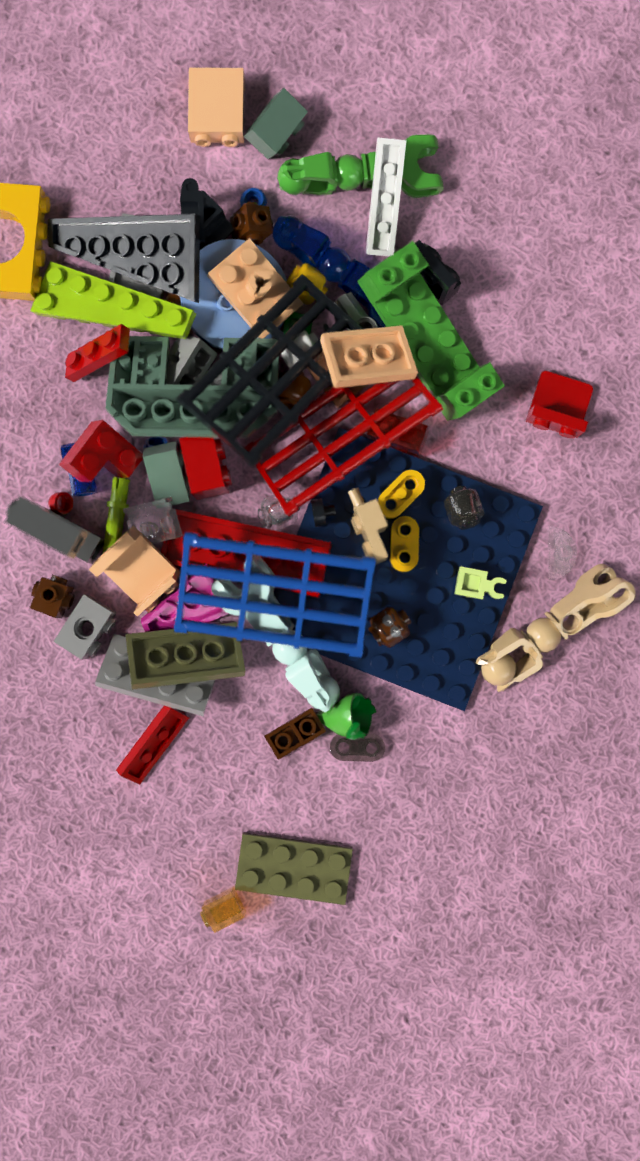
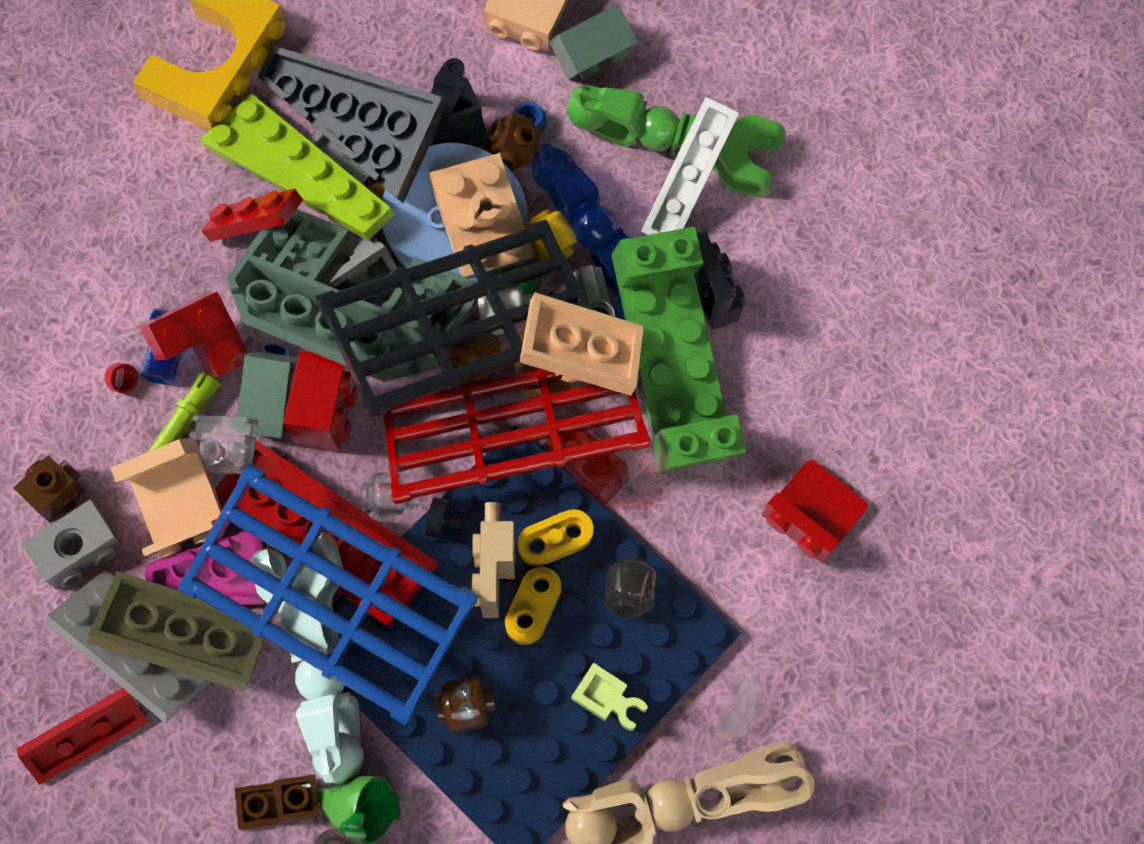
camera: 20 degrees right, 15 degrees down
(53, 530) = (89, 397): dark grey arch -> none

